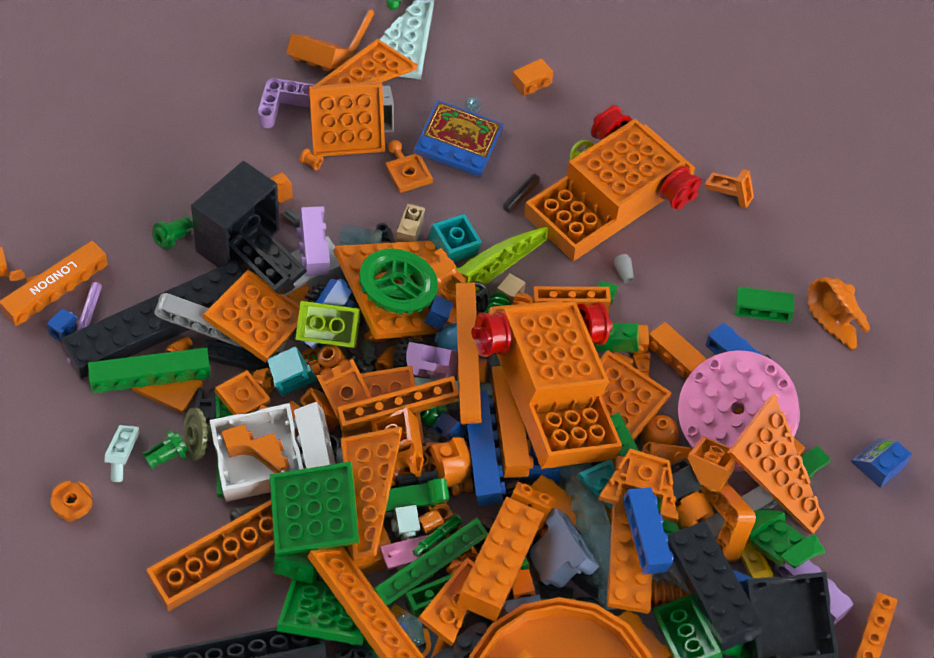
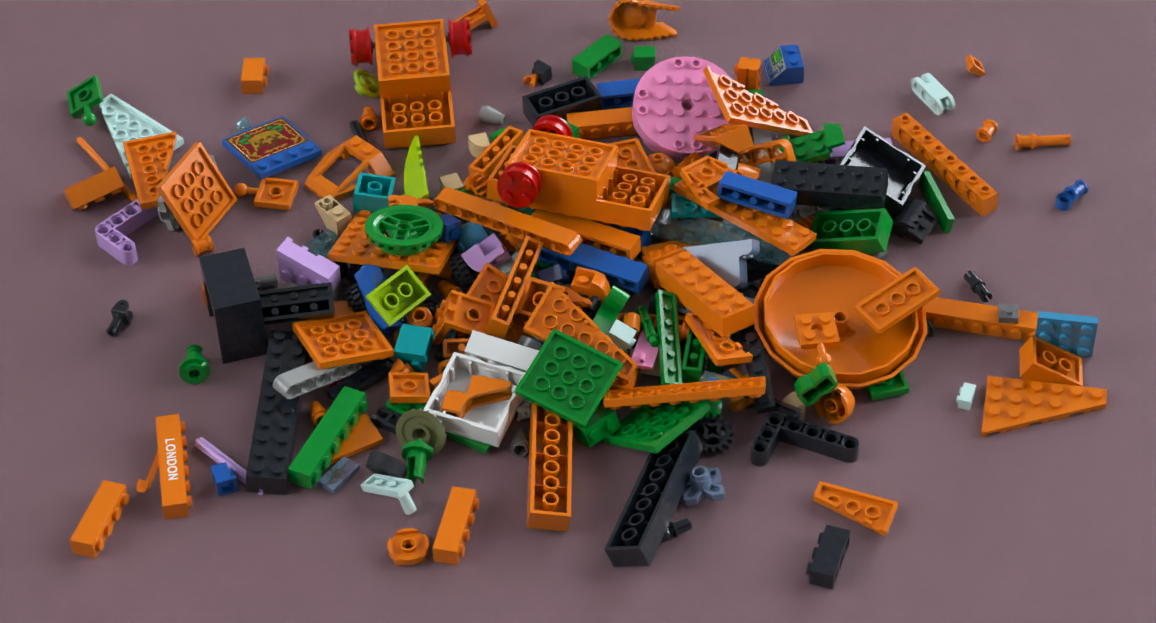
camera: 50 degrees left, 10 degrees down
(115, 521) = (455, 525): none -> orange brick
(122, 403) = (339, 475): none -> sand blue tile
(141, 430) = (385, 464): none -> black tyre
(192, 153) = (119, 317): none -> black piece
(494, 213) = (359, 148): none -> orange windscreen
(546, 181) = (368, 119): none -> orange cone
(580, 277) = (478, 143): none -> tan brick
(681, 310) = (562, 99): none -> black brick
(708, 273) = (540, 73): none -> black piece
(794, 341) = (643, 58): none -> green brick
(834, 437) = (748, 73): none -> orange brick

